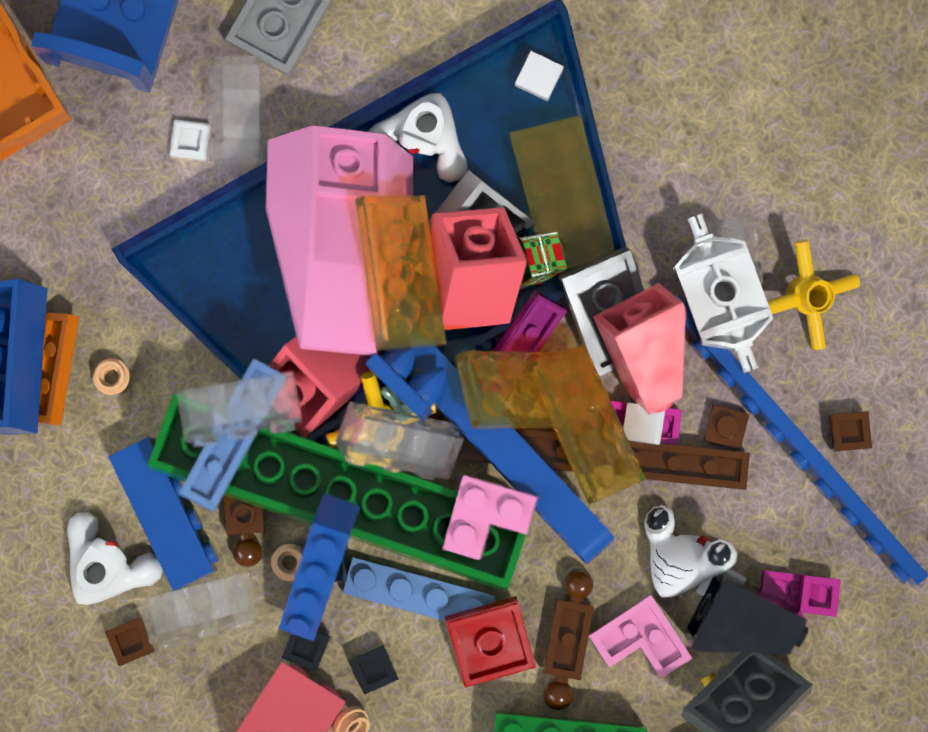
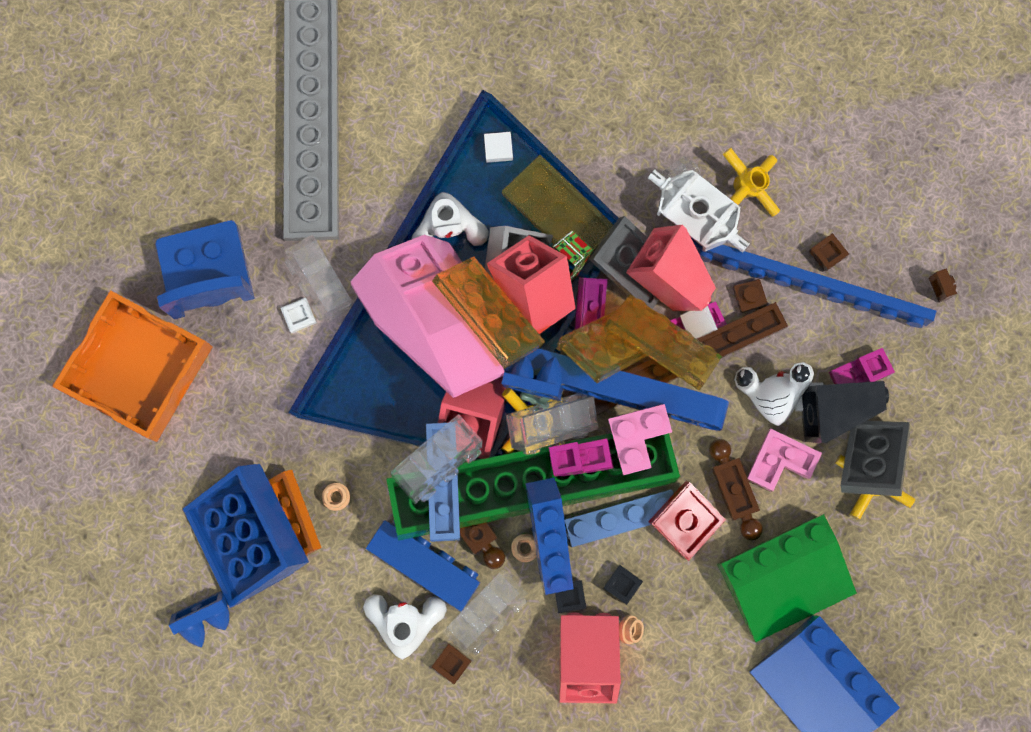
camera: 30 degrees left, 5 degrees down
(407, 500) = (580, 458): none -> dark pink slope

